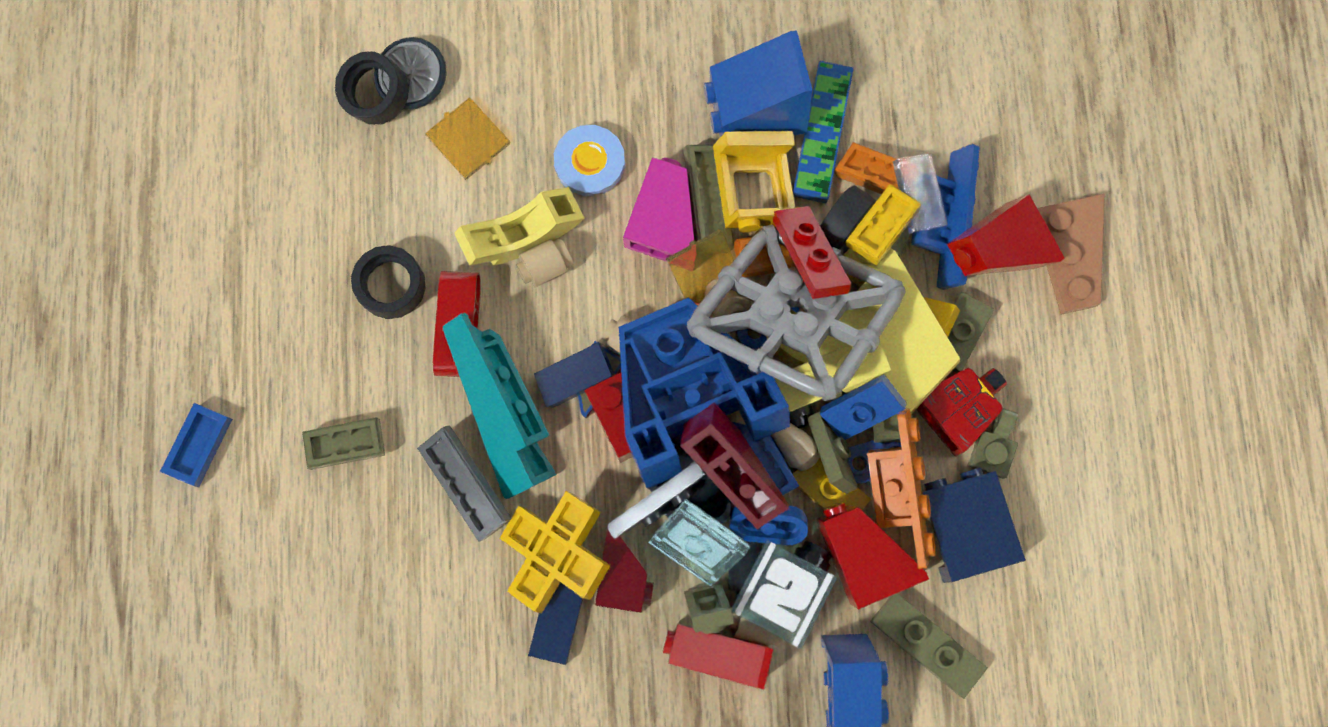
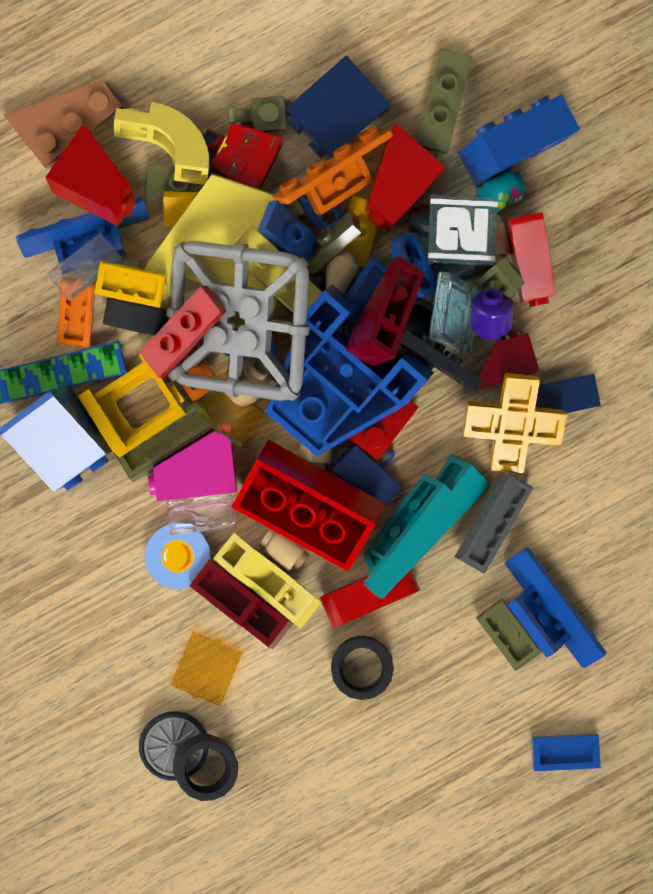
camera: 115 degrees left, 10 degrees up
(341, 492) = (548, 613): none -> blue bracket
(510, 190) = (241, 604): none -> dark red slope
(574, 299) = (308, 505): none -> red brick
(618, 197) = (200, 514): none -> clear plate
(679, 582) = (491, 314): none -> dark purple head
(806, 664) = (505, 187): none -> teal brick
(1019, 345) = (171, 132): none -> light yellow arch

